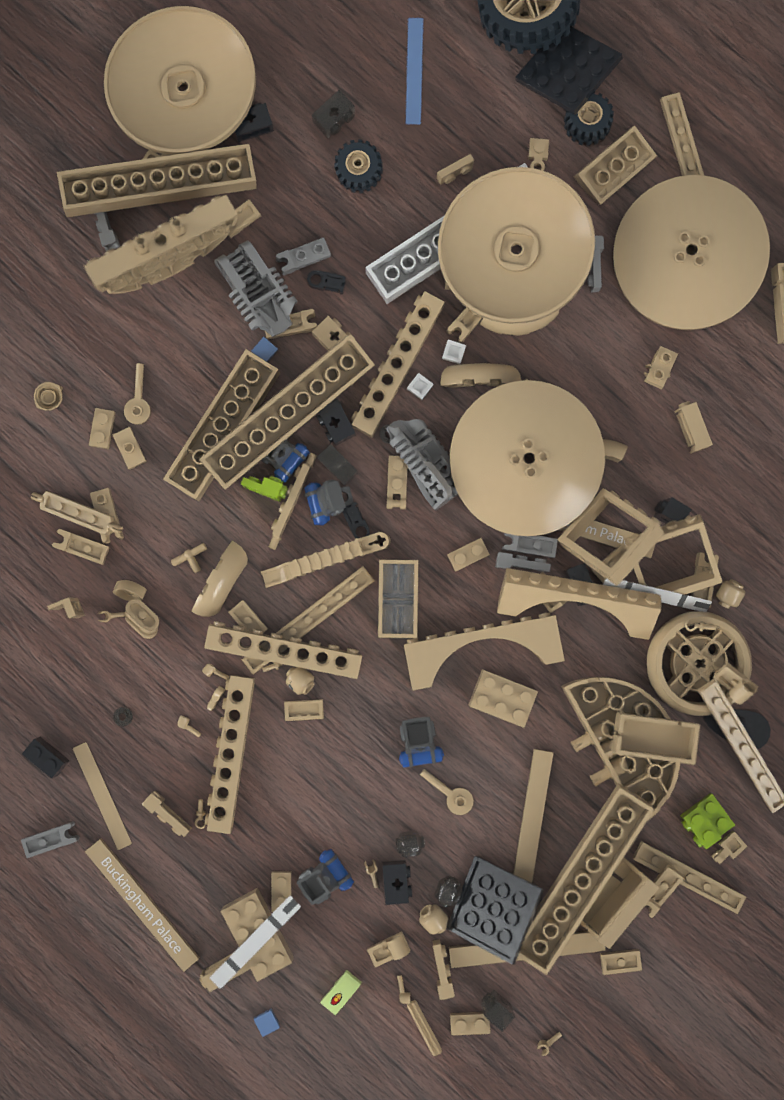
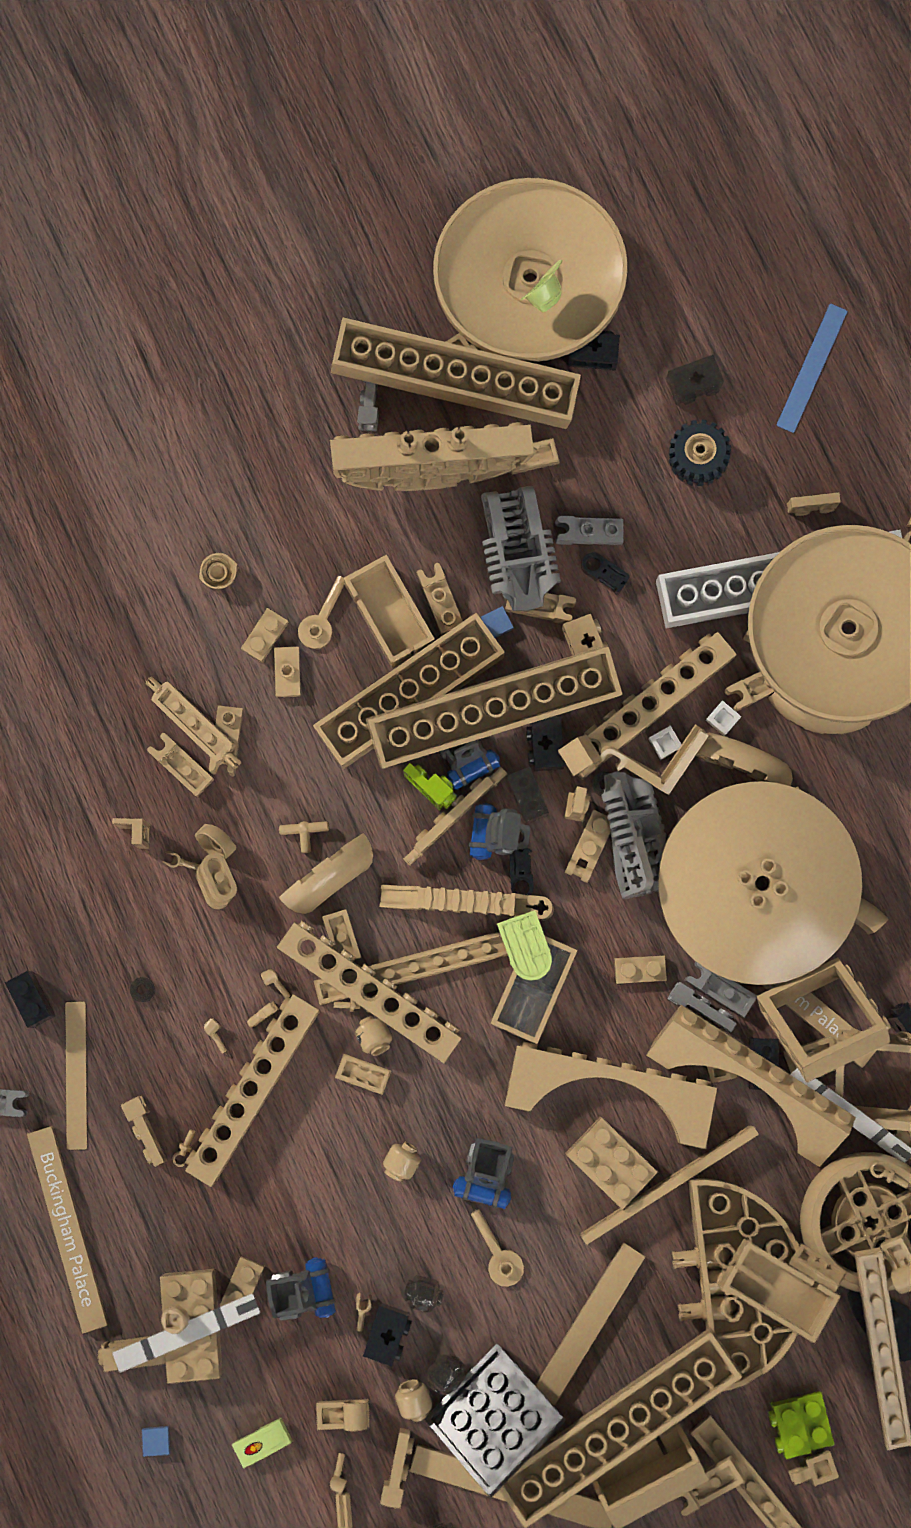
camera: 25 degrees right, 5 degrees down
(182, 373) = (388, 610): none -> tan piece
(198, 91) = (547, 290): none -> yellowish green piece
(216, 350) = (440, 599): none -> tan plate
(243, 936) = (175, 1319): none -> tan tile
(356, 759) = (401, 1161): none -> tan head
(363, 421) = (580, 756): none -> tan brick
(375, 457) = (577, 804): none -> tan plate
(380, 572) = (526, 946): none -> yellowish green window
(434, 402) = (674, 769): none -> tan hinge
(549, 695) = (669, 1184): none -> tan tile
(676, 711) = (818, 1268): none -> tan plate

